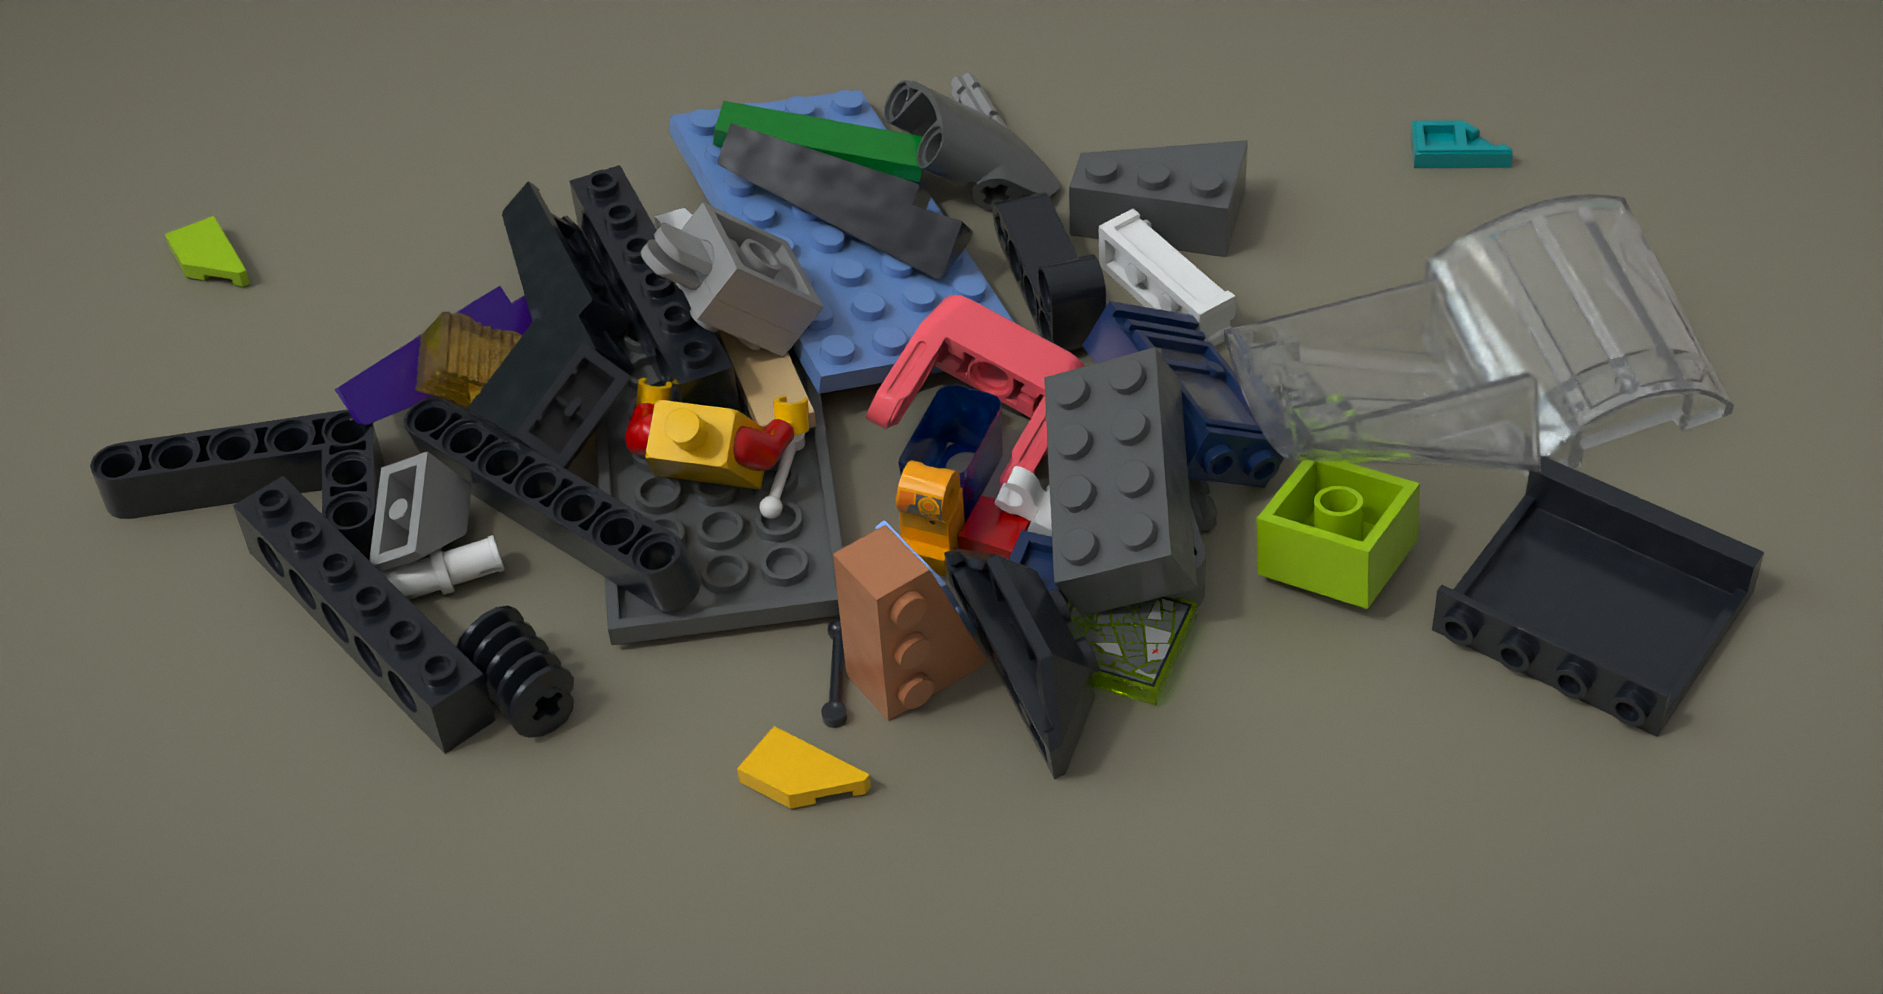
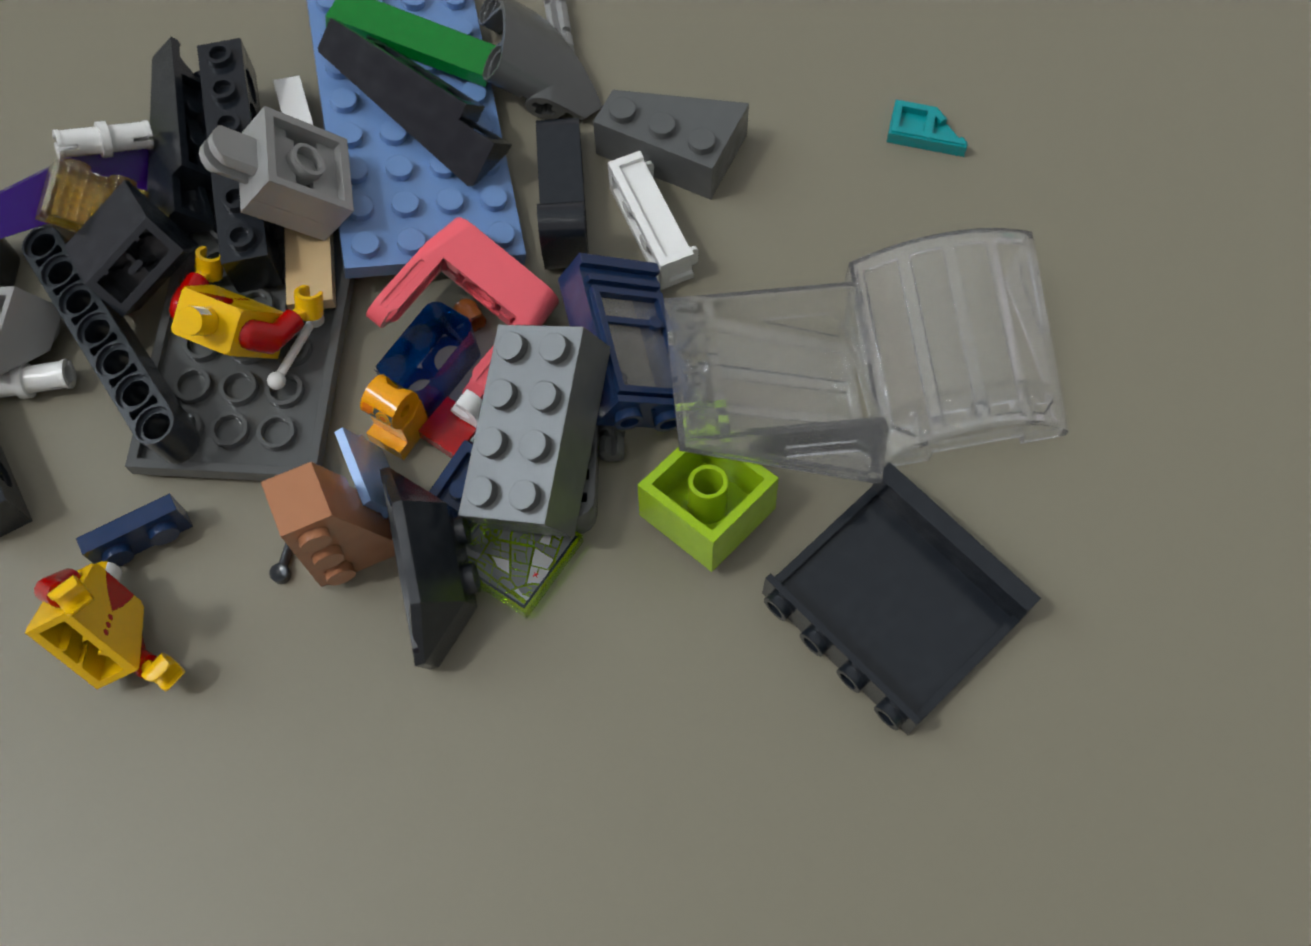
camera: 10 degrees right, 20 degrees up
(483, 292) = (102, 139): none -> white pin
(519, 671) = (46, 491): black piece -> none
(643, 695) = (135, 532): none -> dark blue plate
(643, 785) = (97, 627): none -> yellow torso
(797, 771) = (233, 623): yellow tile -> none

